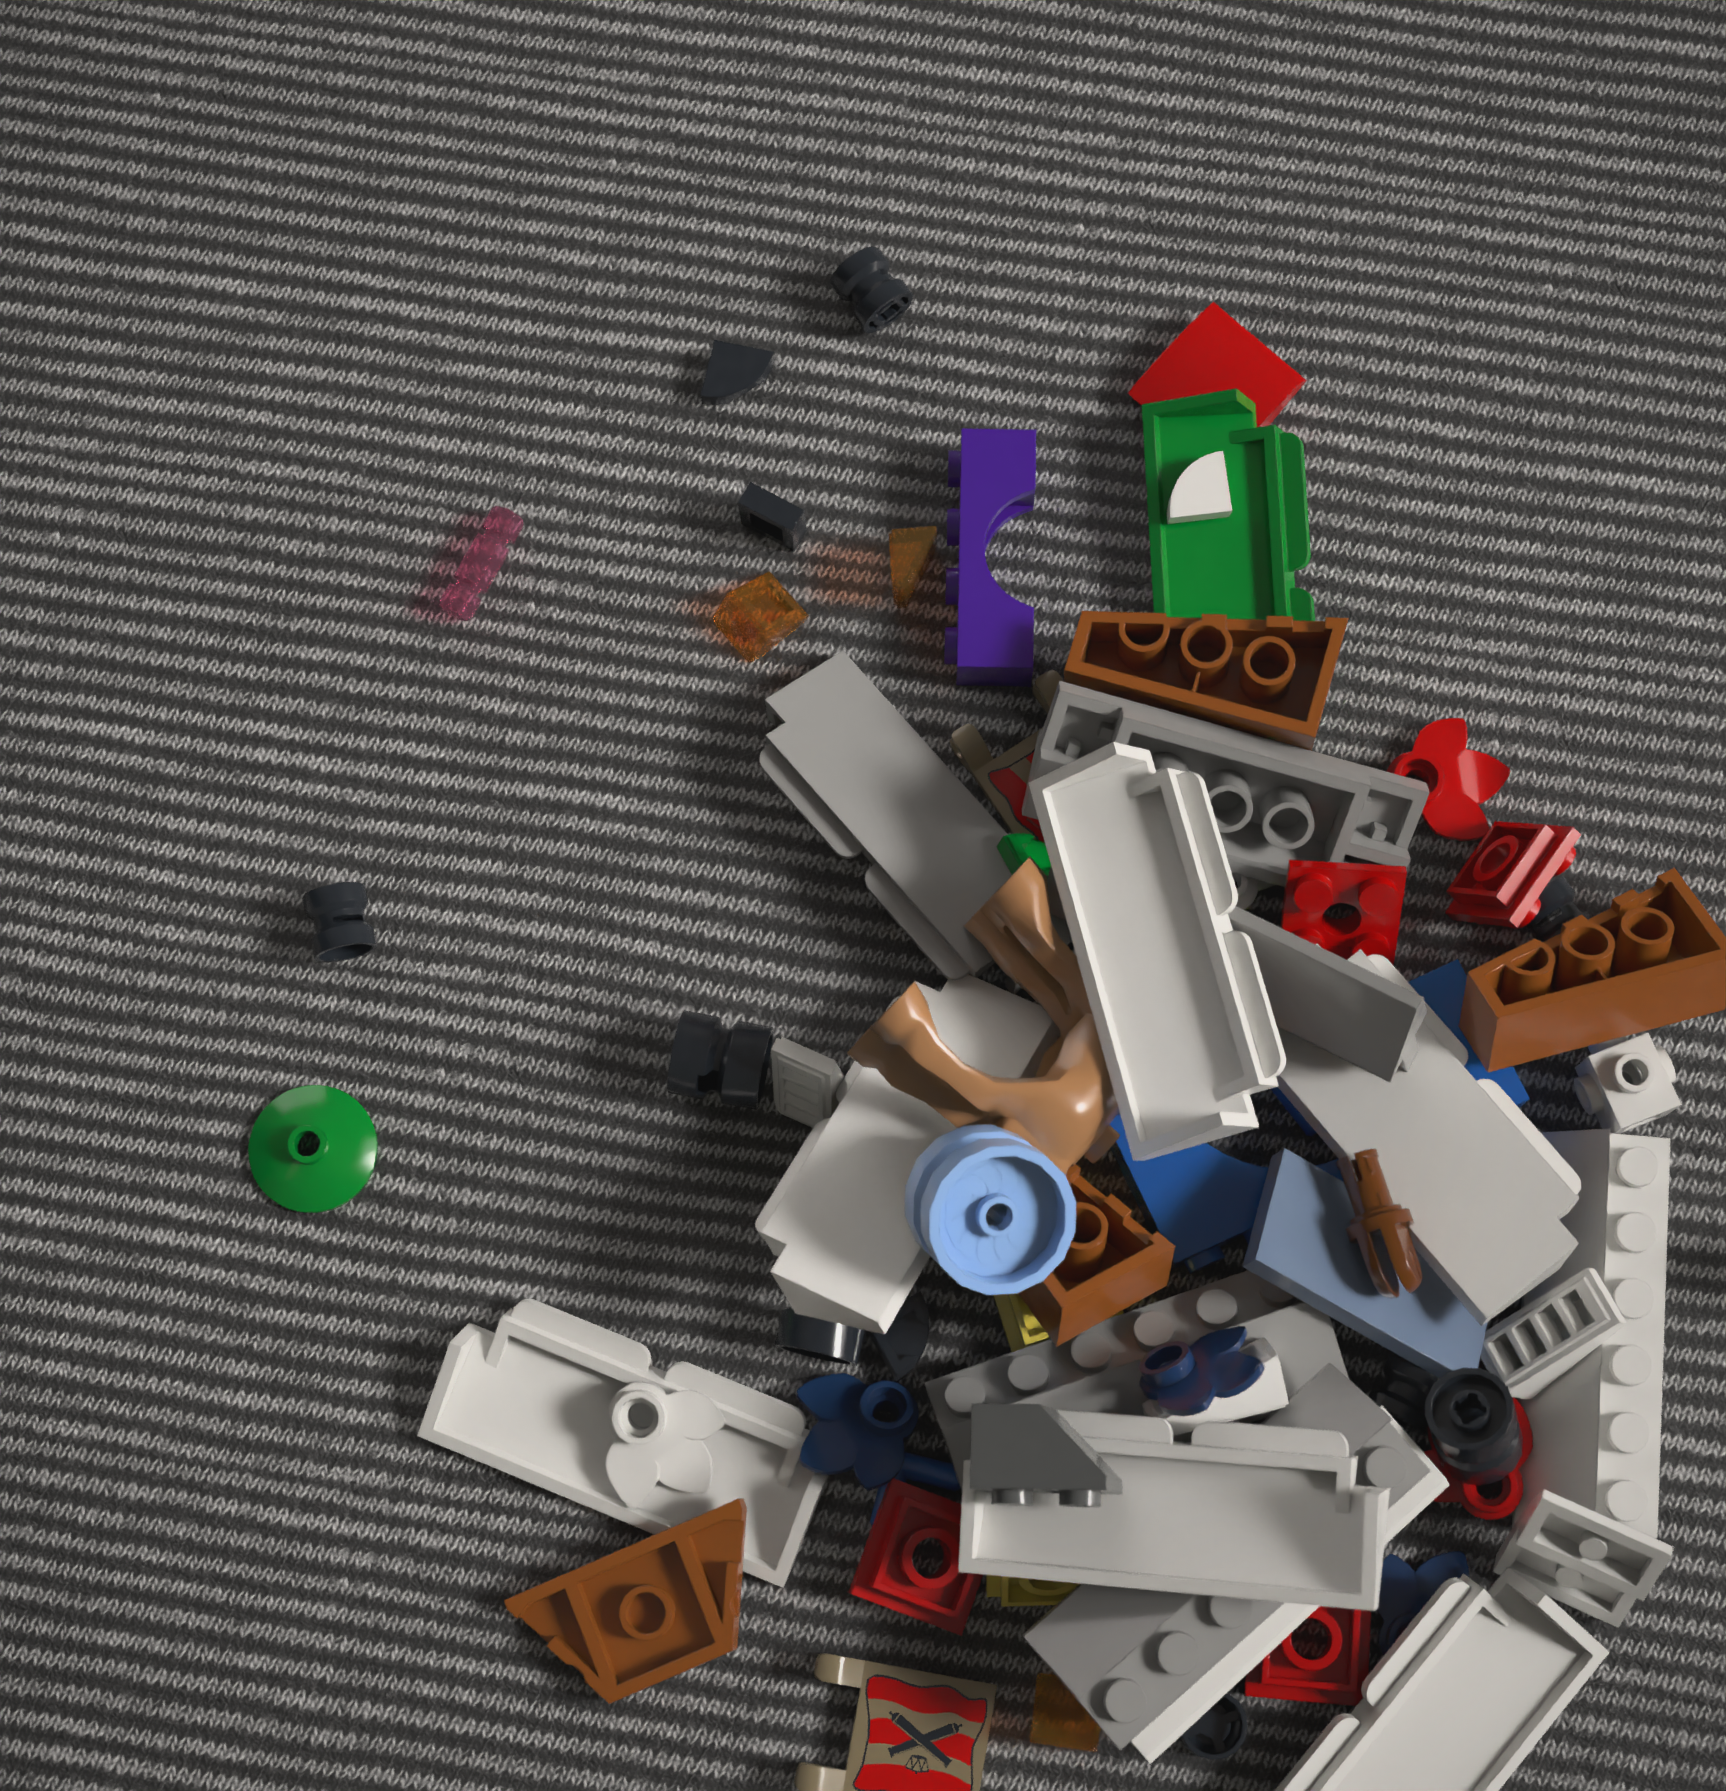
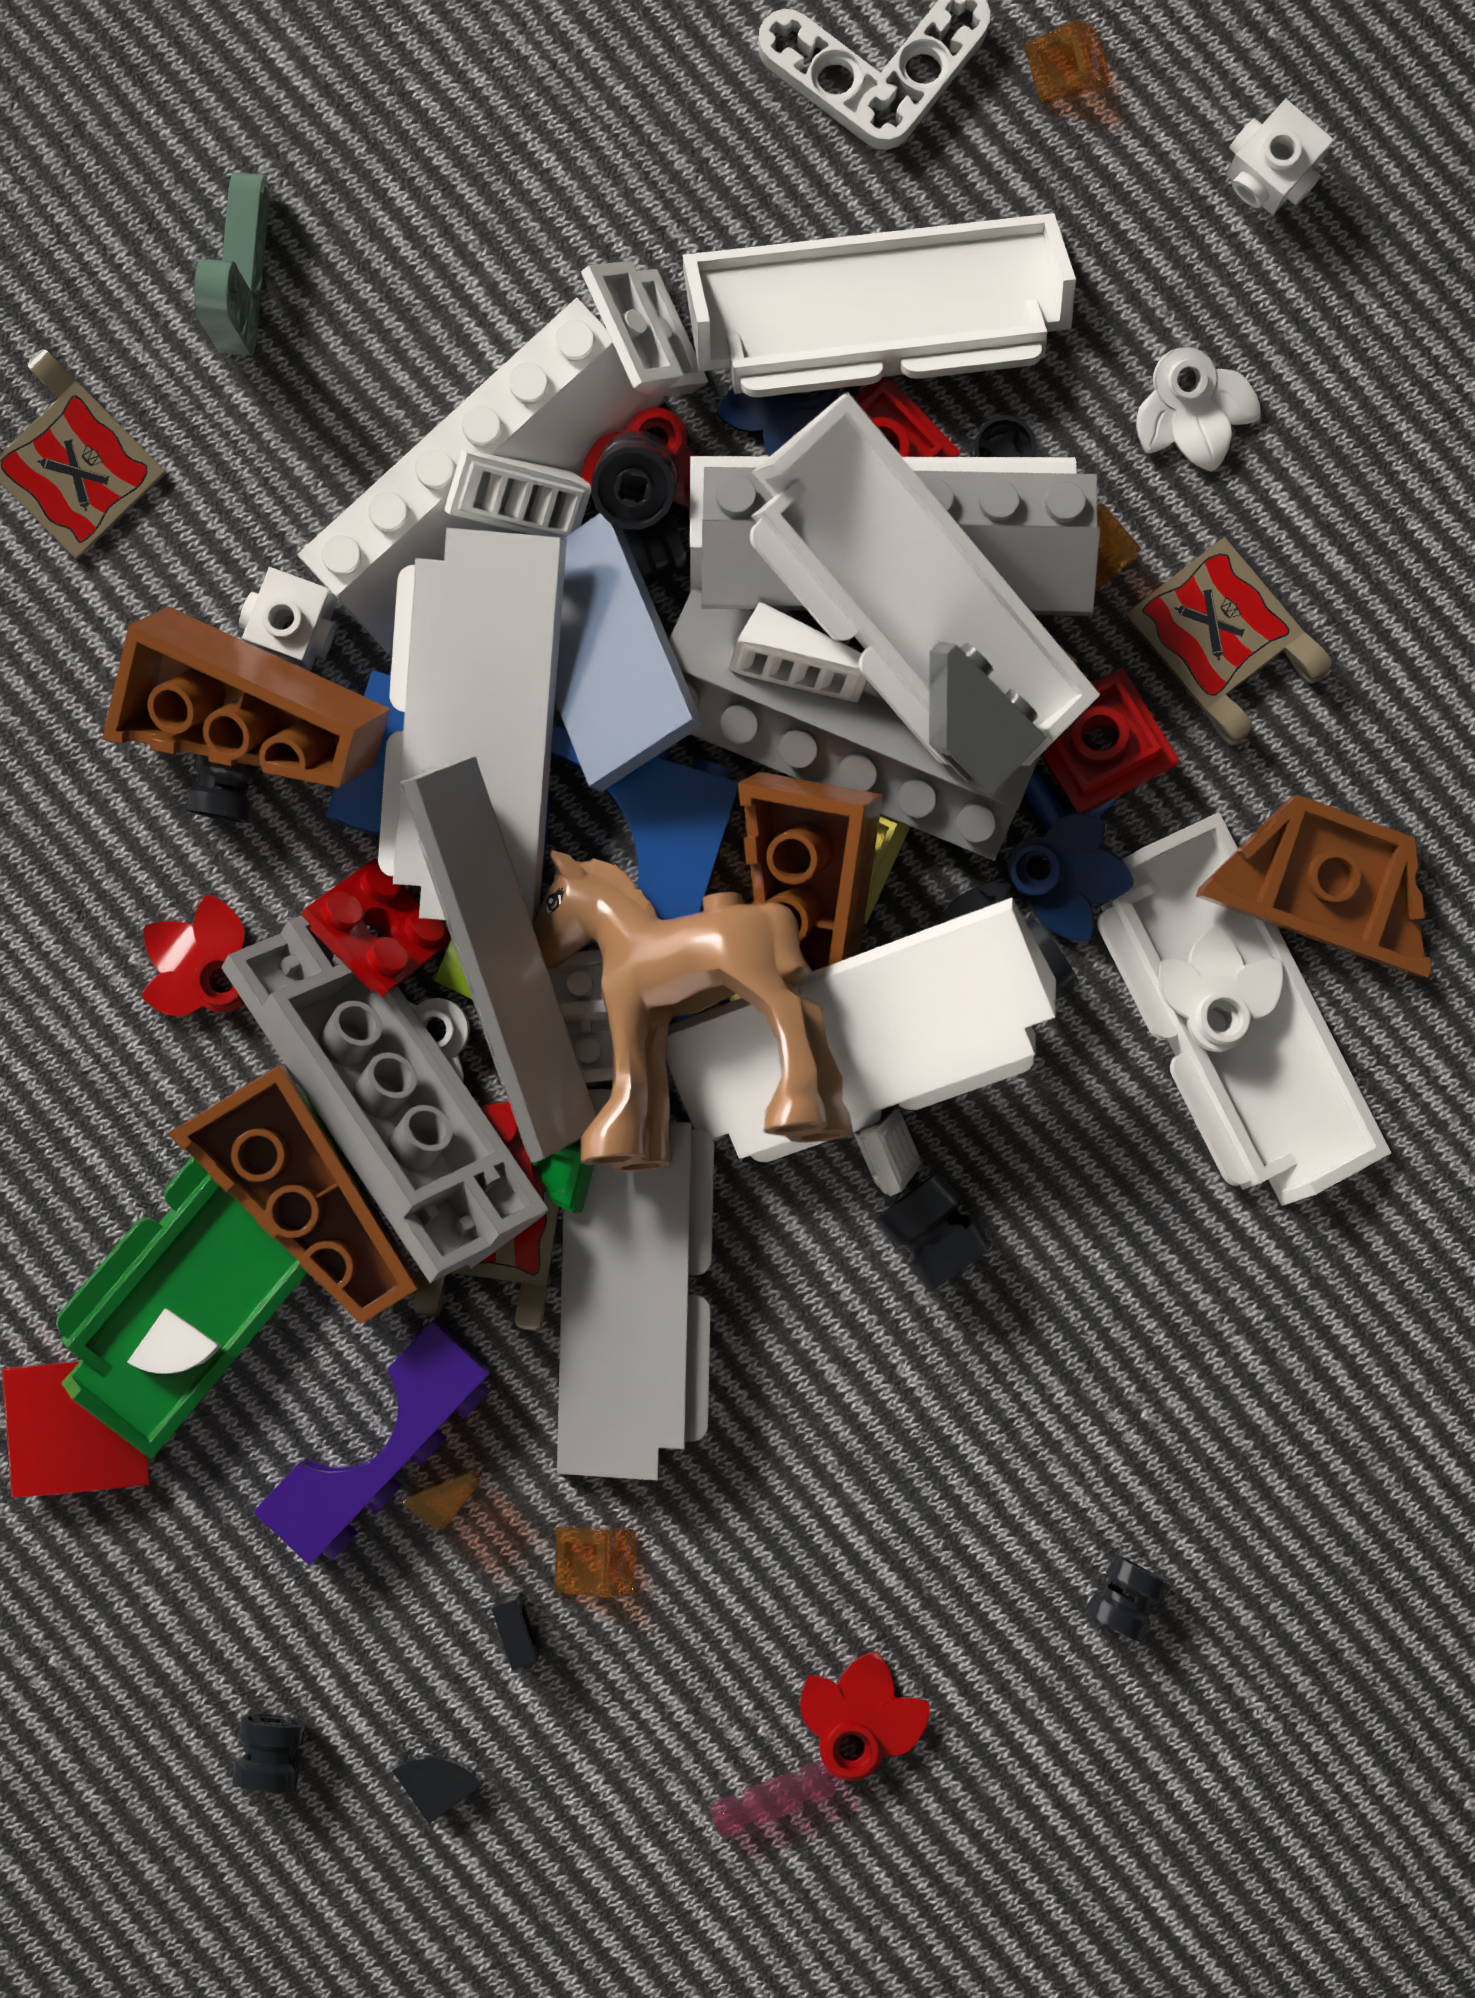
camera: 140 degrees left, 10 degrees up
(337, 1168) = (1258, 1432): green dish -> none
(470, 682) = (861, 1707): none -> red plate
(990, 1209) = (859, 914): light blue wheel -> none
(1156, 948) = (554, 1003): white slope -> none
(1191, 1376) = (804, 678): dark blue plate -> none
(1379, 1226) = (575, 667): reddish brown arm -> none
(1510, 873) = (223, 844): red piece -> none

